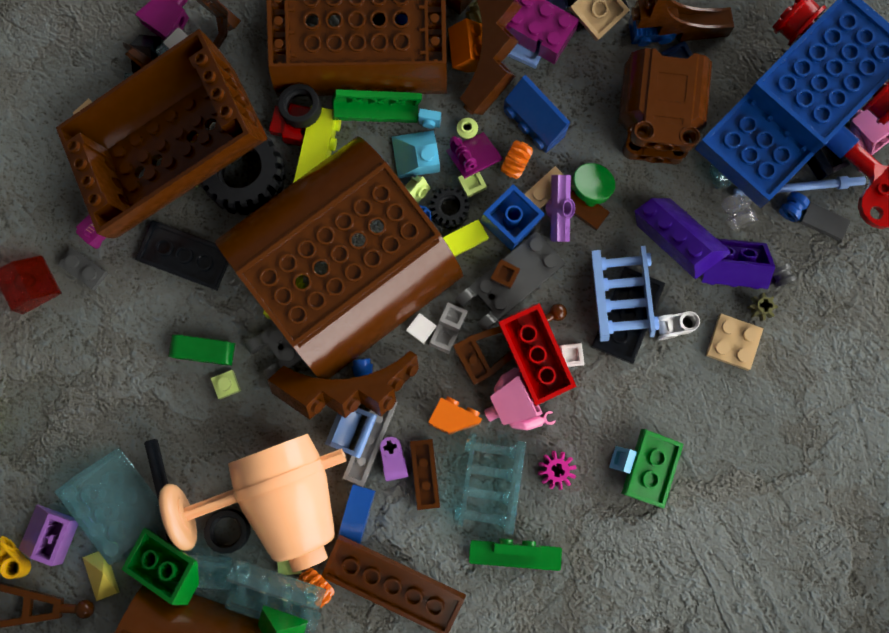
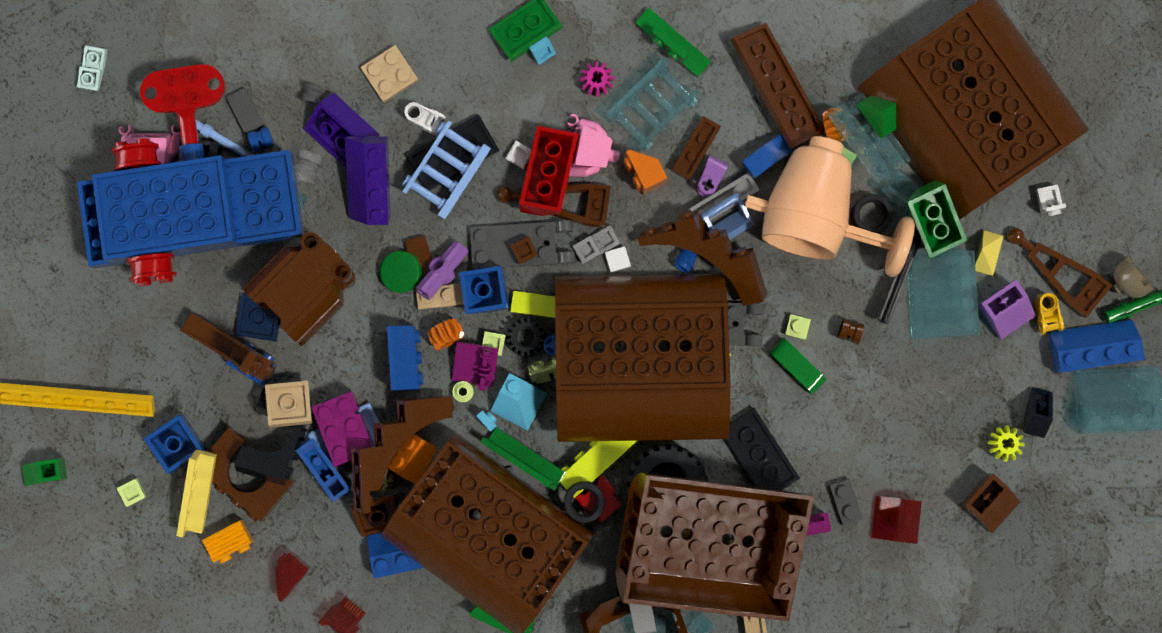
camera: 145 degrees left, 5 degrees up
(175, 413) = (851, 331): none -> reddish brown wheel
(759, 311) = (349, 77): olive gear -> none

